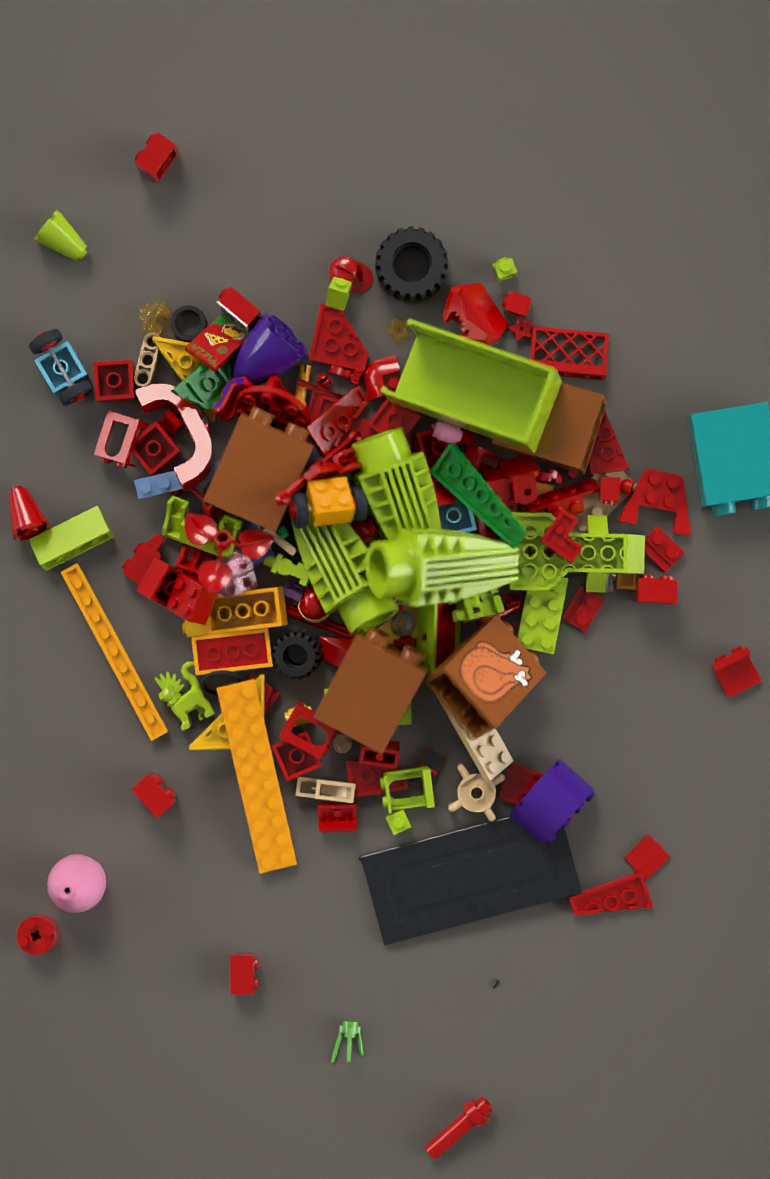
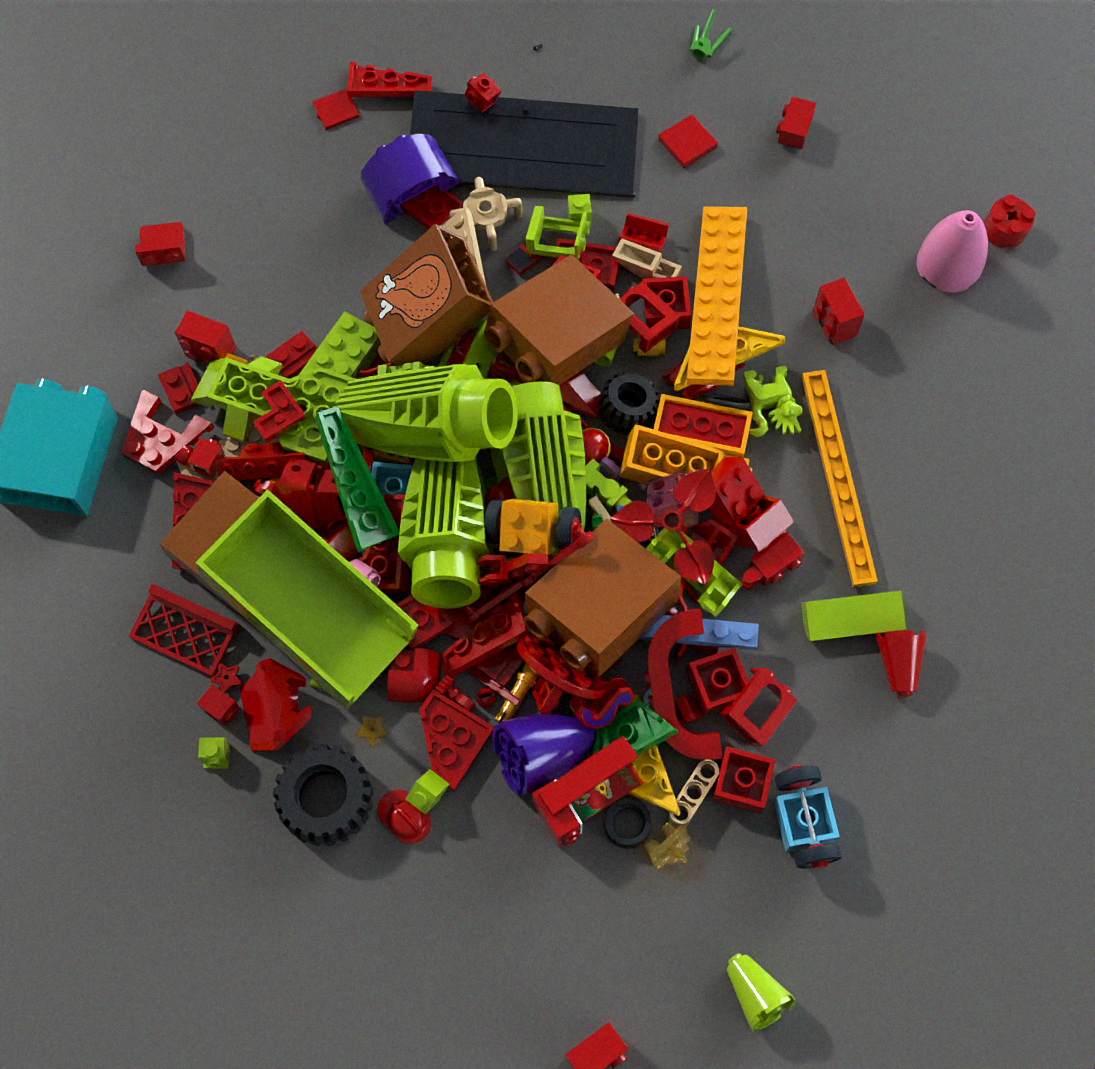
camera: 165 degrees left, 20 degrees down
(223, 336) = (588, 775): none -> red tile
(331, 928) = (687, 141): none -> red tile
(520, 903) = (482, 92): none -> red brick

